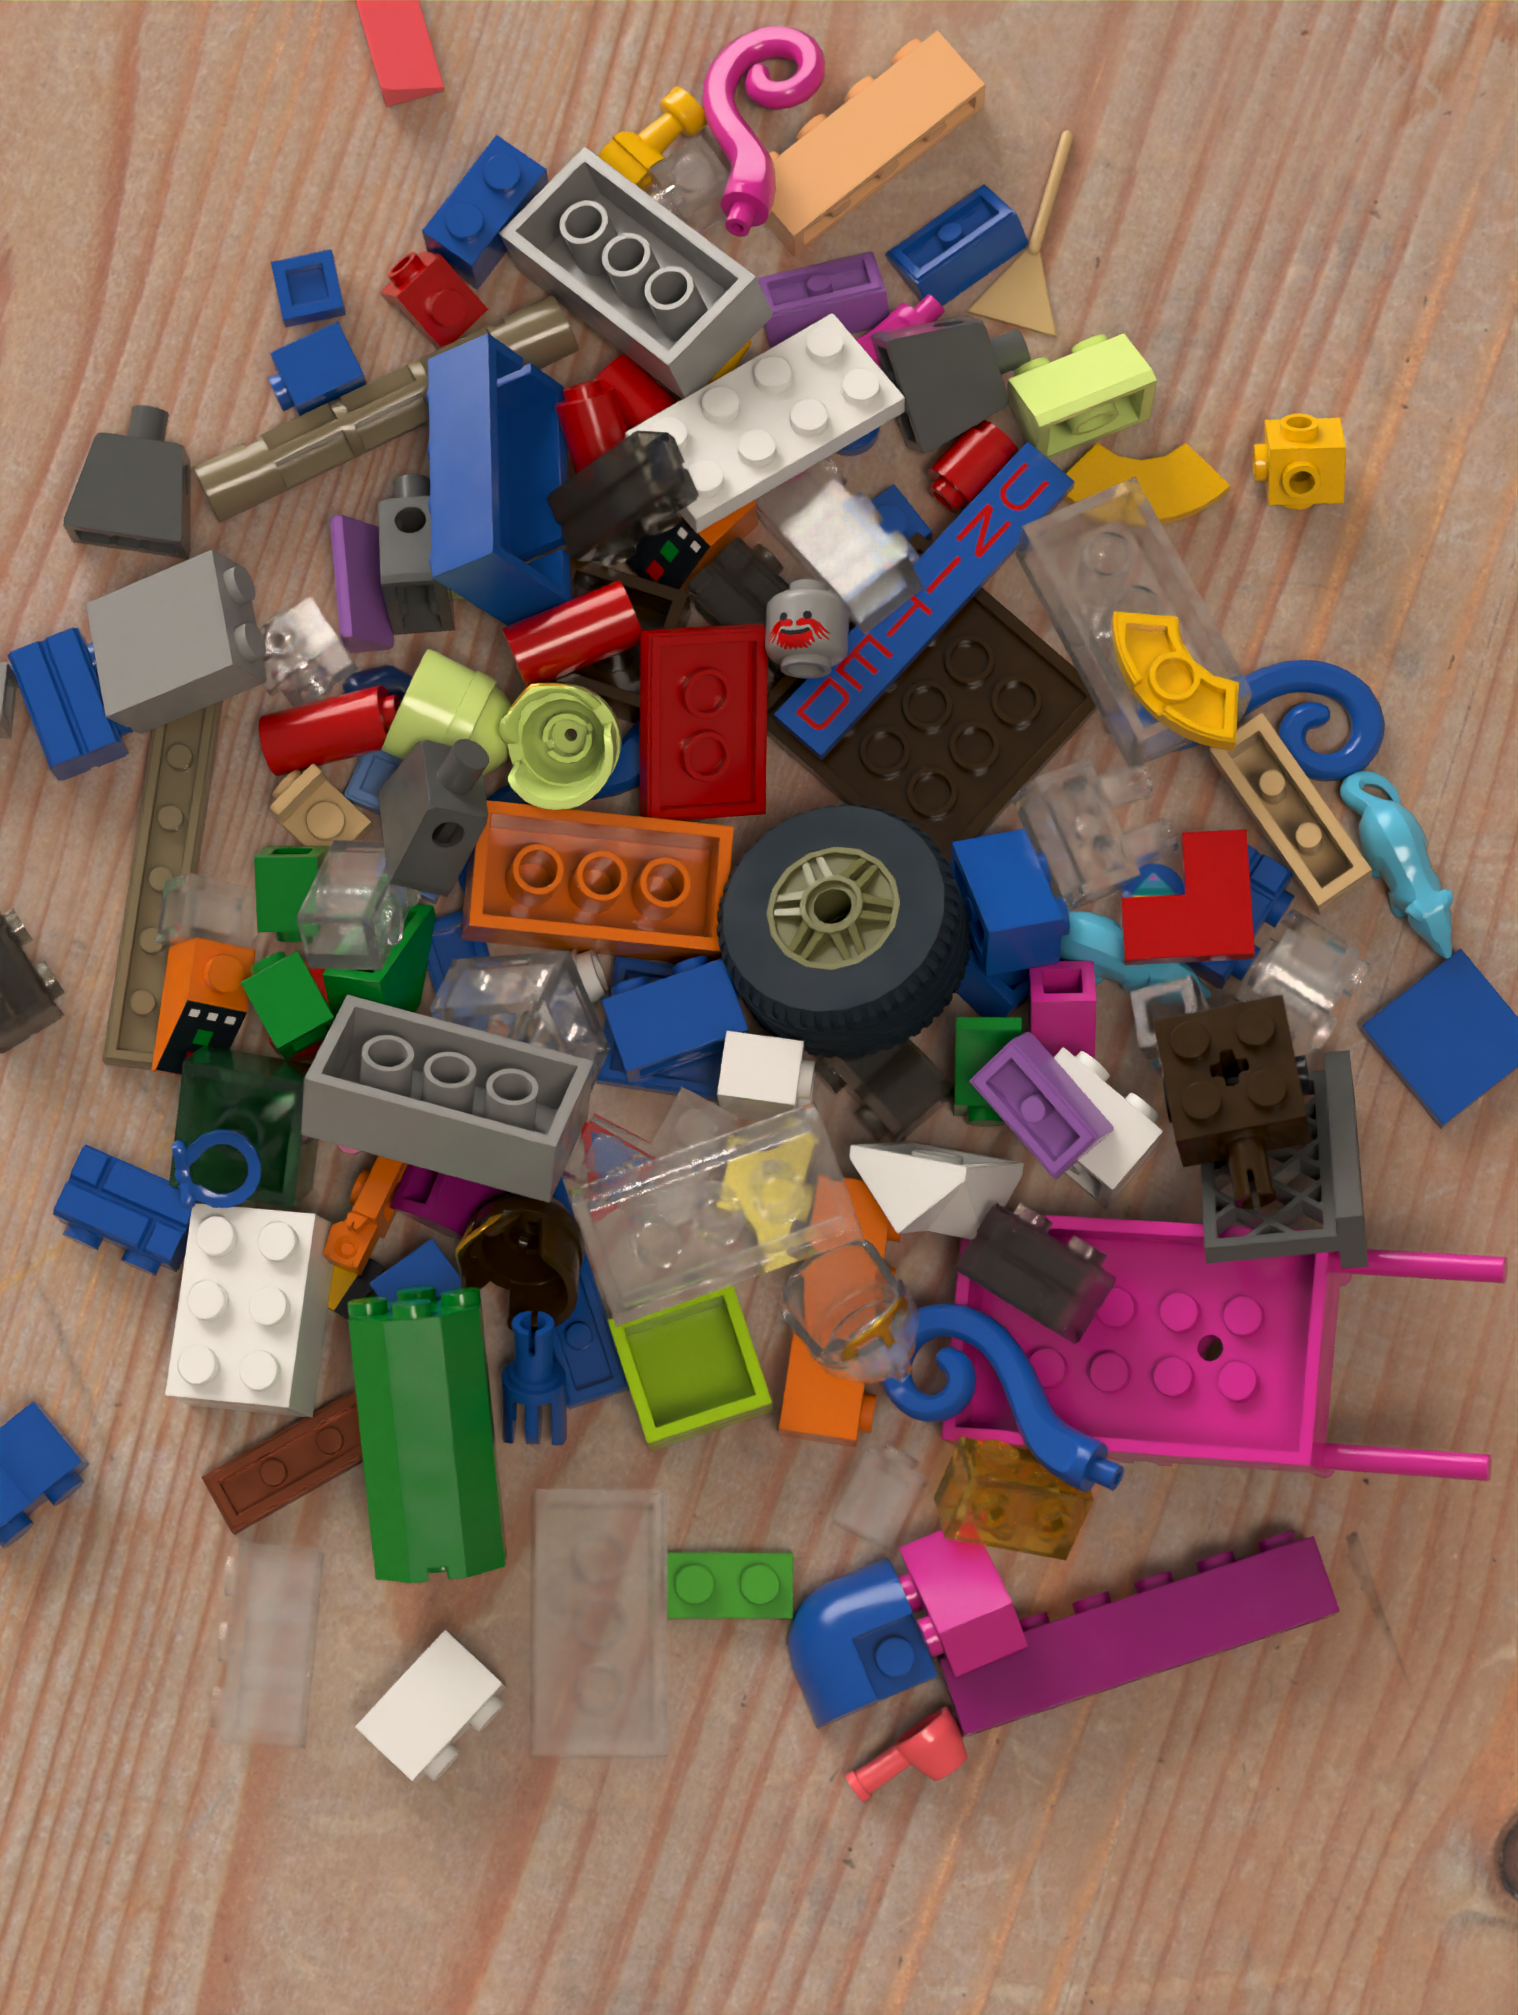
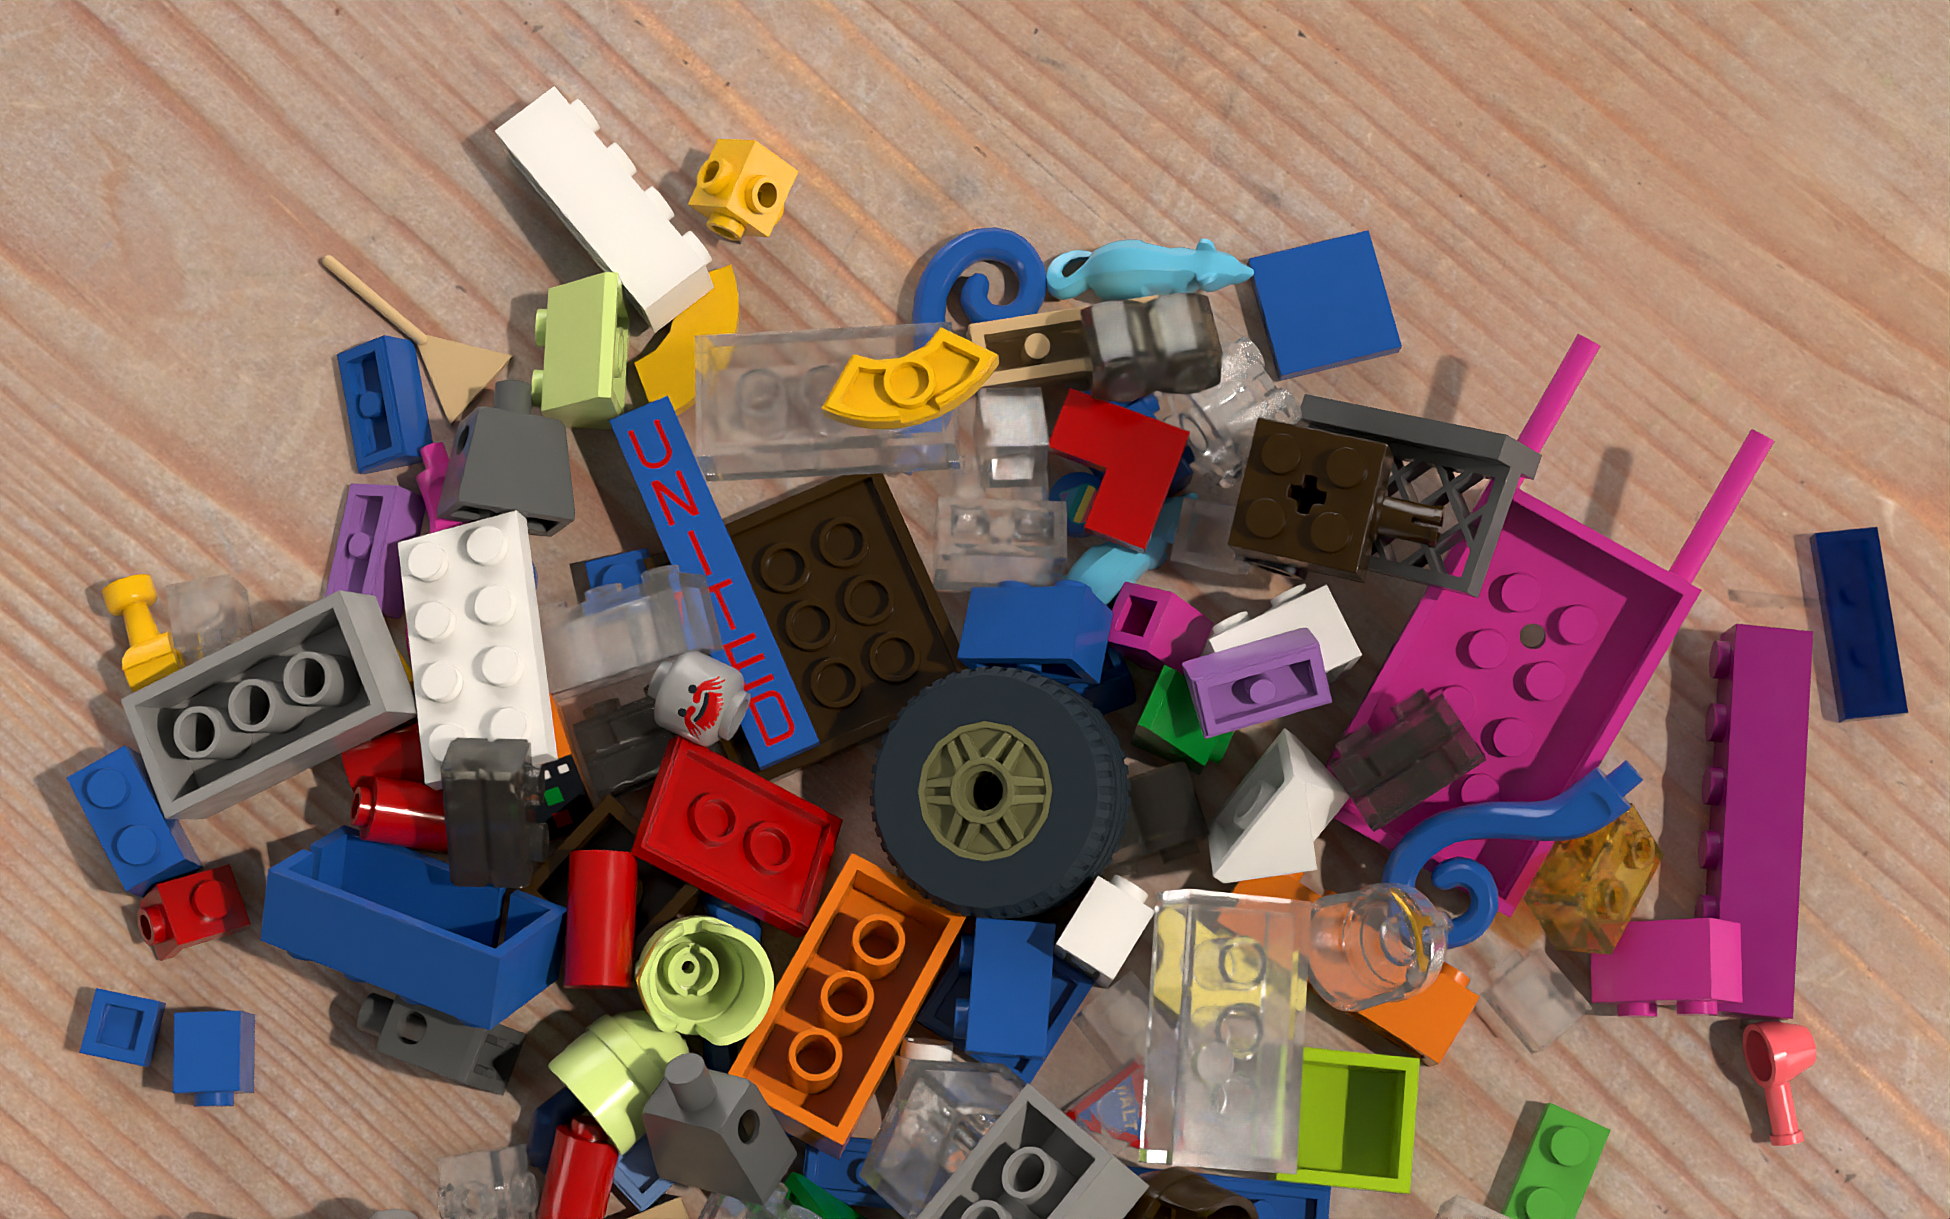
camera: 75 degrees left, 0 degrees up
(359, 593) = (442, 1104): medium lavender slope -> none
(363, 418) = (278, 1027): dark tan piece -> none
(752, 175) = (231, 553): dark pink plant -> none
(856, 1644) = (1659, 1080): blue brick -> none
(871, 138) = (243, 441): light nougat brick -> none
(969, 465) = (604, 484): red brick -> none
(1179, 799) = (1010, 437): none -> clear brick
(1225, 350) = (605, 207): none -> white brick
(1310, 877) = (1150, 347): none -> clear smoke brick
(1377, 1665) = (1858, 624): none -> clear blue tile

